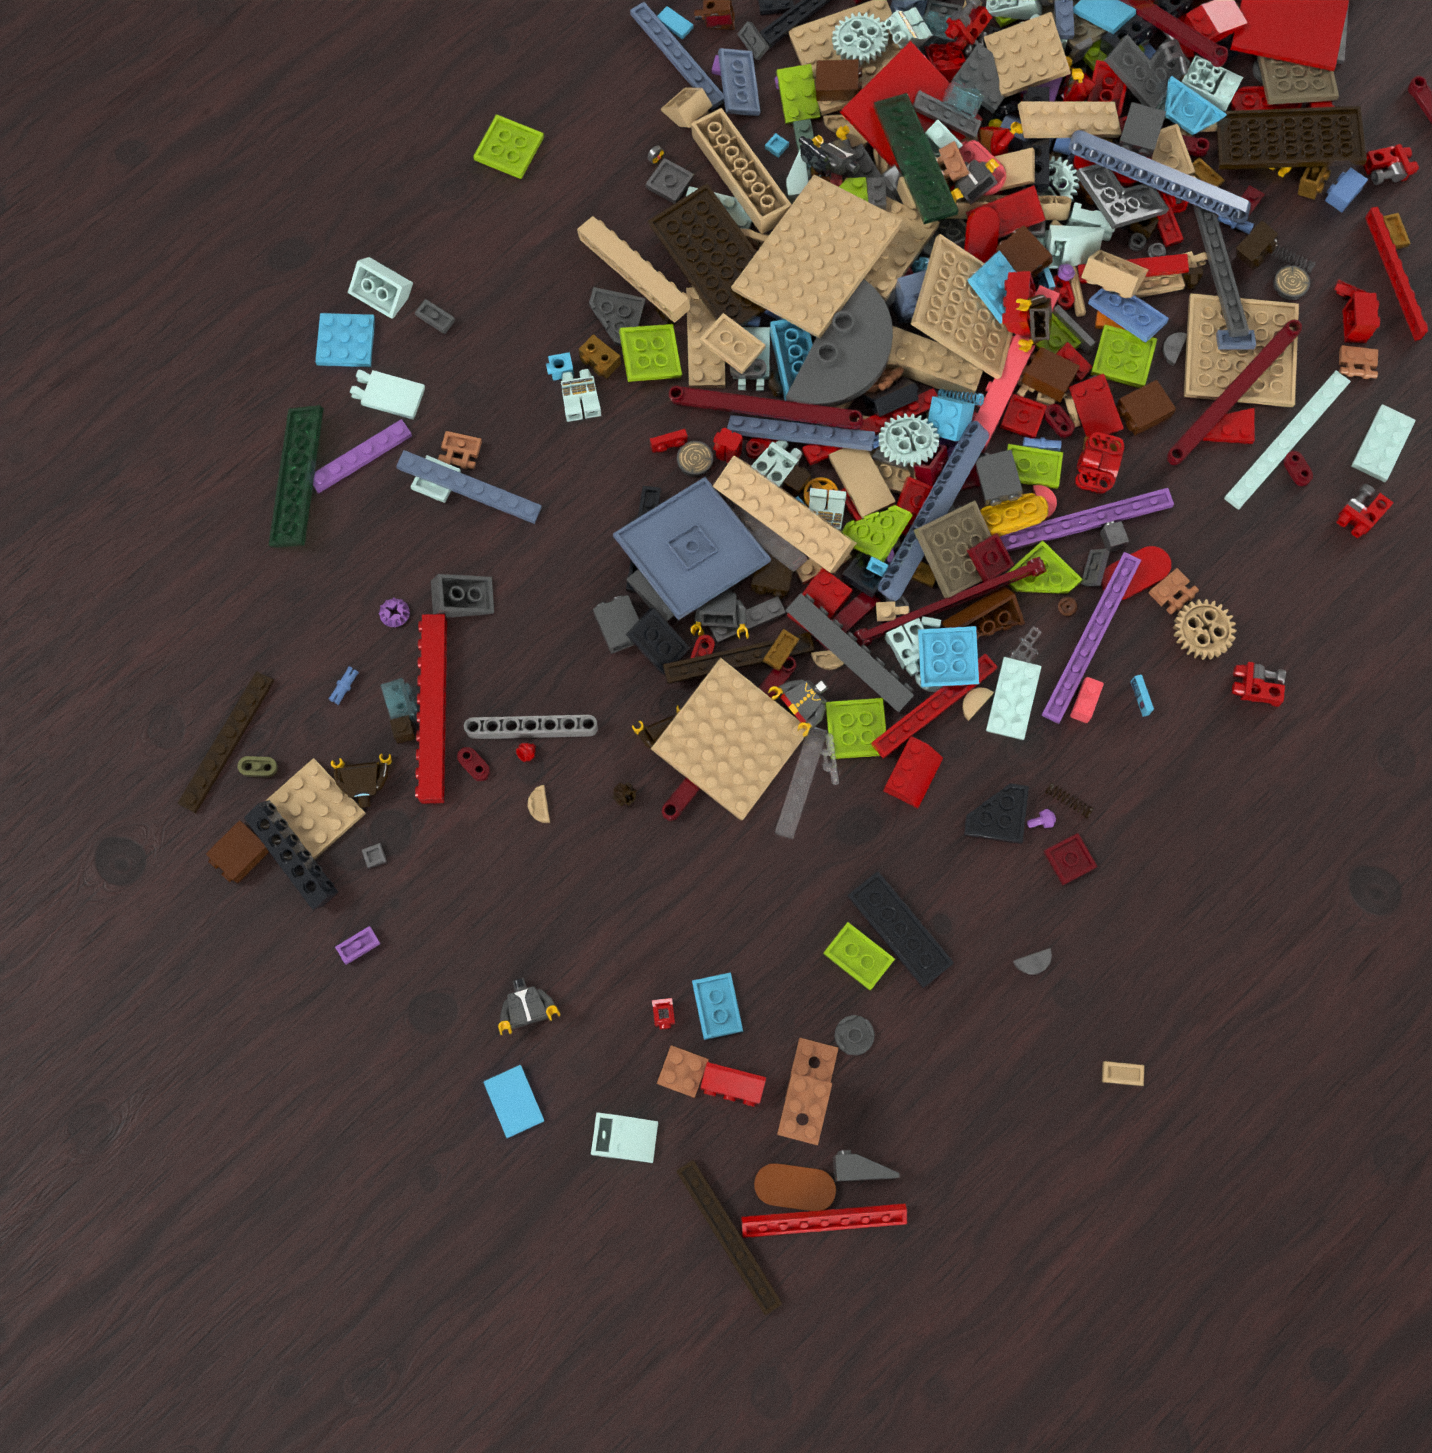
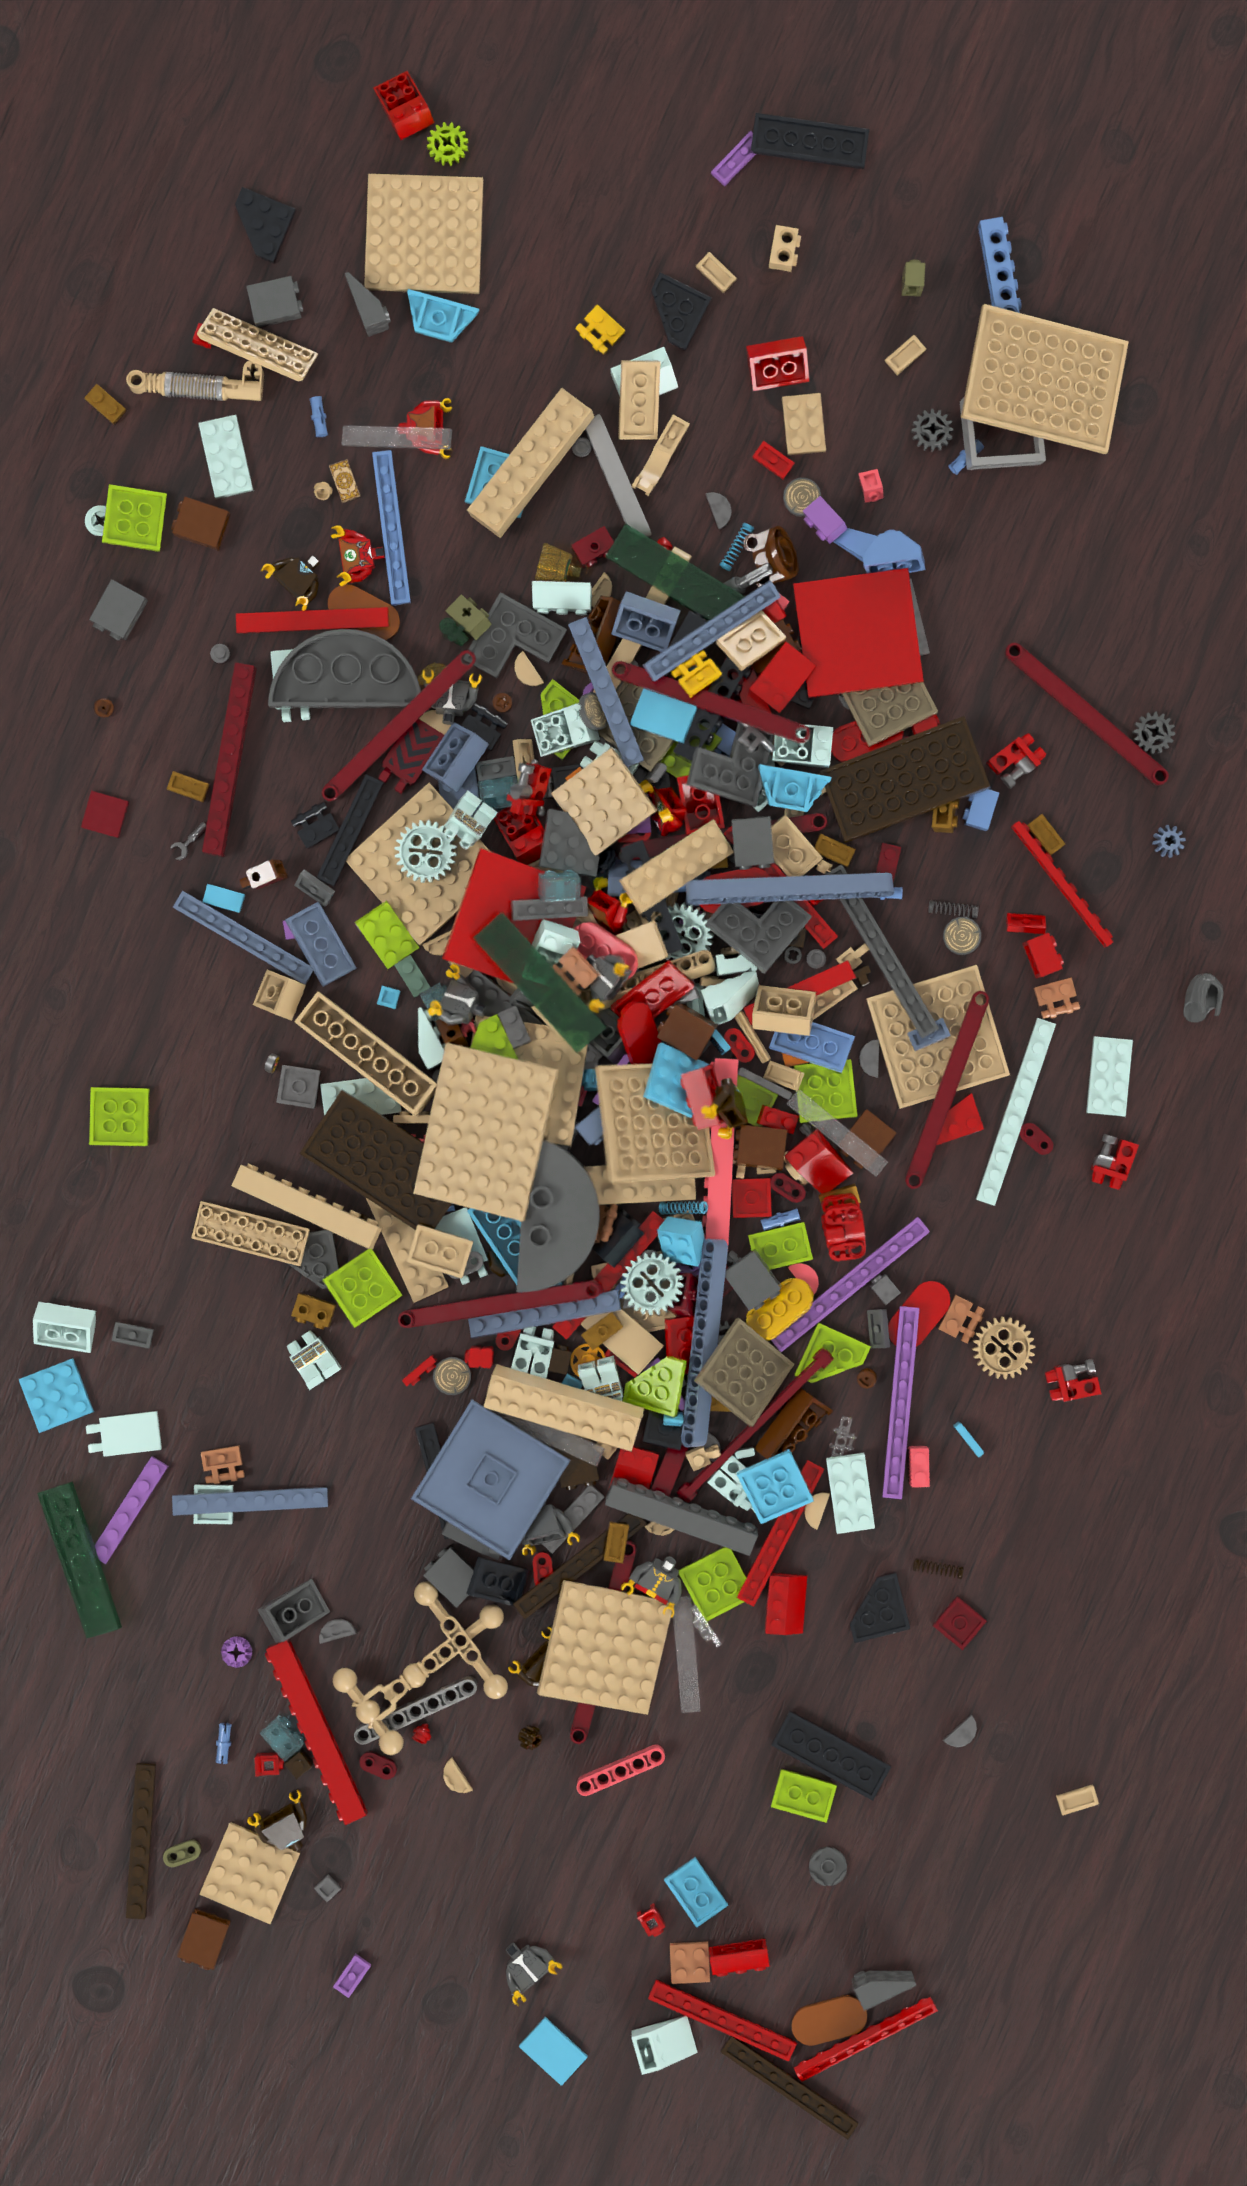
camera: 20 degrees left, 15 degrees up
(291, 854) = (254, 1924): black brick -> none
(374, 719) = (268, 1764): none -> red window
(491, 630) = (336, 1629): none -> flat silver tile
(546, 690) = (415, 1674): none -> tan piece
(559, 359) = (288, 1337): medium azure brick -> none
(574, 274) = (250, 1233): none -> tan plate
(691, 1141) = (722, 2020): none -> red plate
(704, 854) = (613, 1776): none -> coral beam
(808, 1091) = (807, 1941): nougat bracket -> none
(814, 156) = (443, 1027): black plate -> none
(837, 79) = (423, 910): reddish brown brick -> none
(846, 465) = (602, 1330): none -> pearl gold plate
(990, 557) = (776, 1365): dark red tile -> none
(1046, 818) = (924, 1596): medium lavender plate -> none
(1066, 272) = (735, 1026): medium lavender plate -> none
(1094, 328) = (783, 1075): none -> tan tile
(1123, 387) = (837, 1133): none -> clear tile
(1257, 245) = (913, 920): dark brown brick -> none

